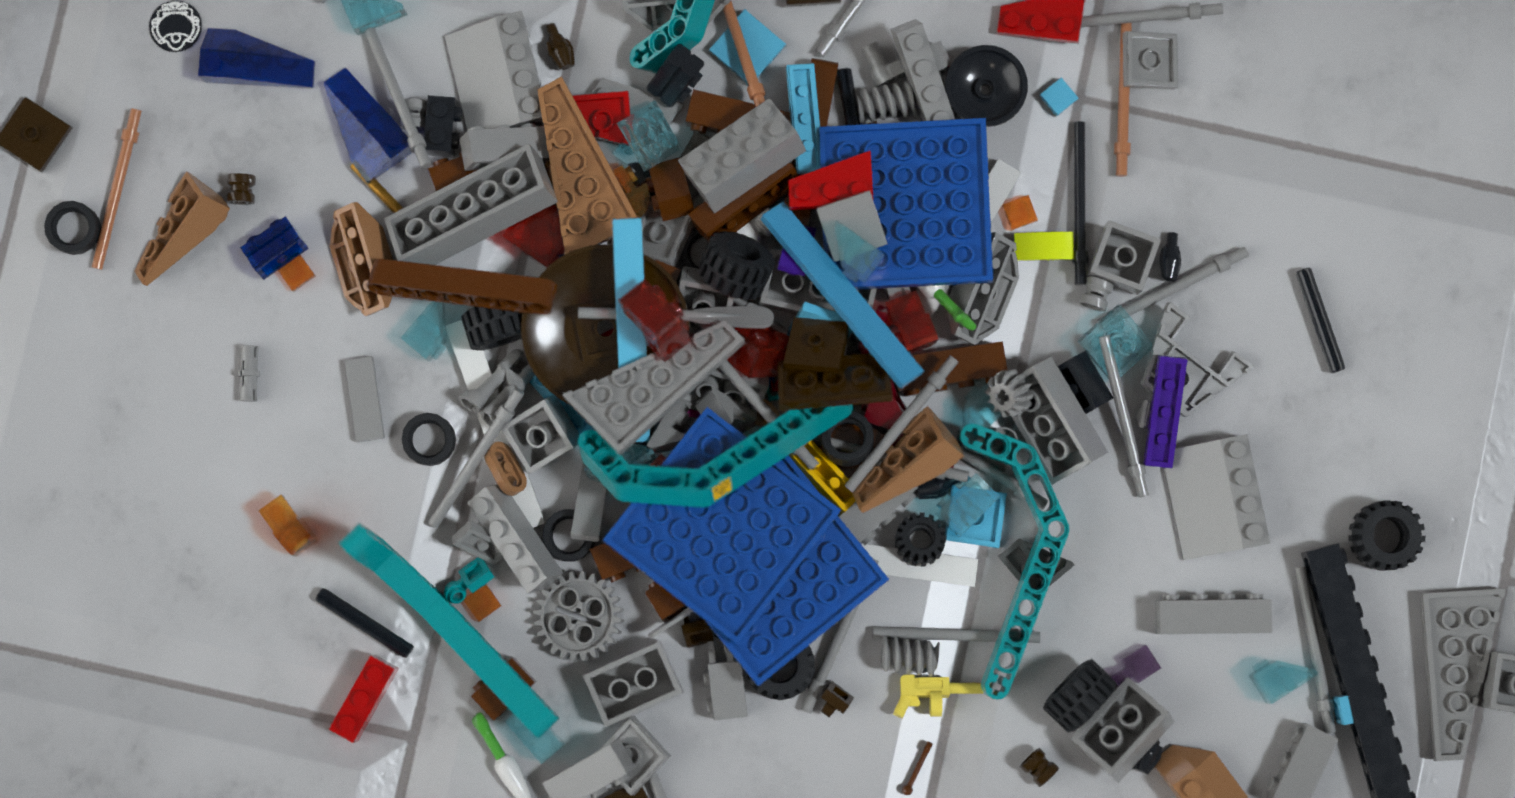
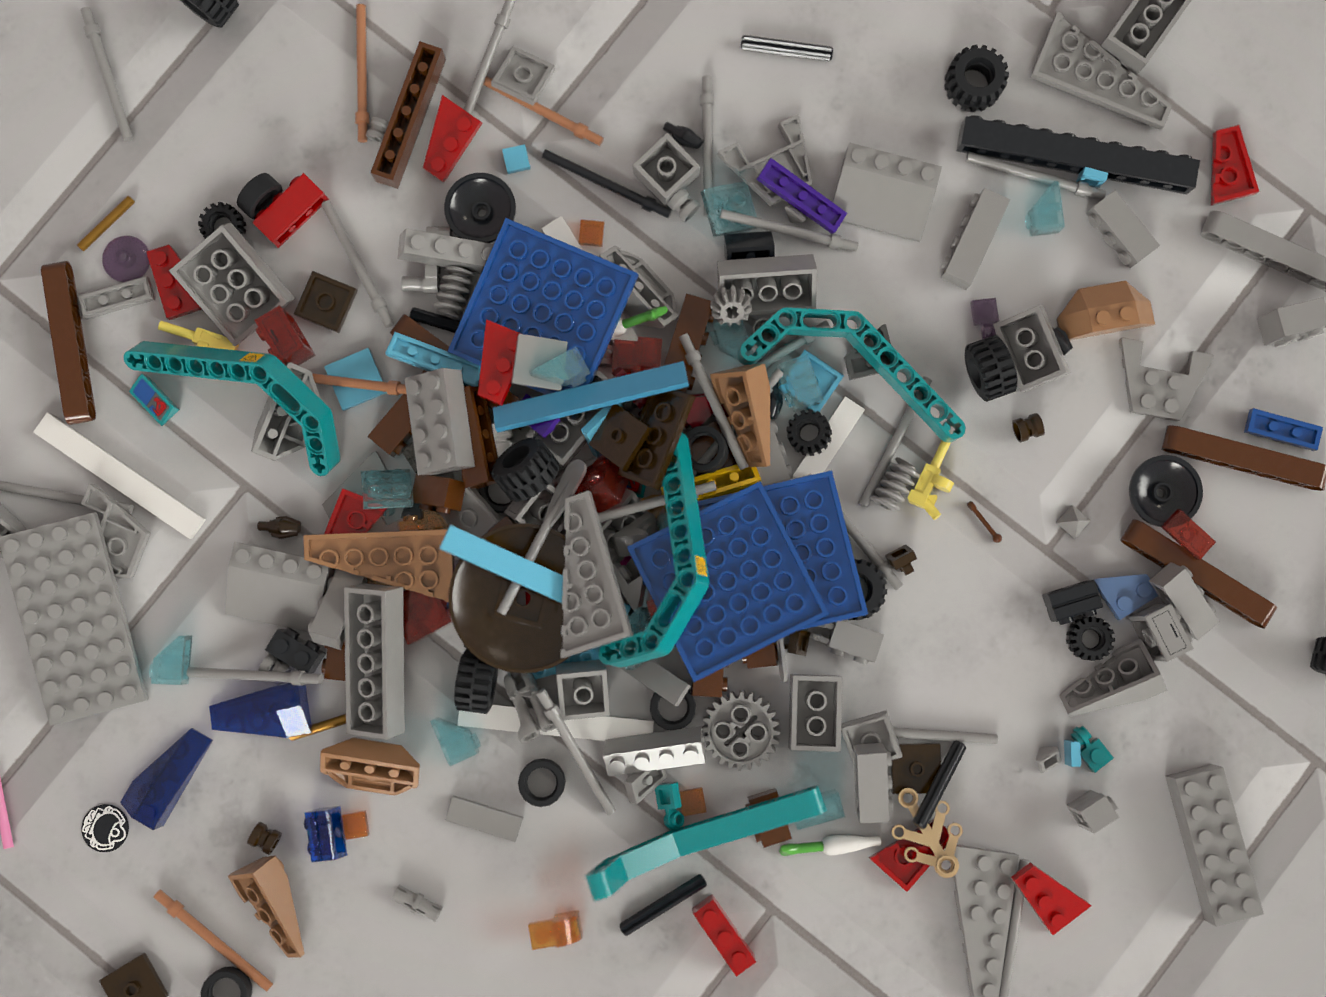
camera: 65 degrees left, 0 degrees up
(462, 286) = (433, 697): reddish brown beam -> none
(505, 469) = (596, 732): medium nougat plate -> none
(656, 318) = (538, 551): clear red brick -> none
(675, 75) = (349, 444): black brick -> none
(1044, 246) = (627, 226): neon yellow slope -> none

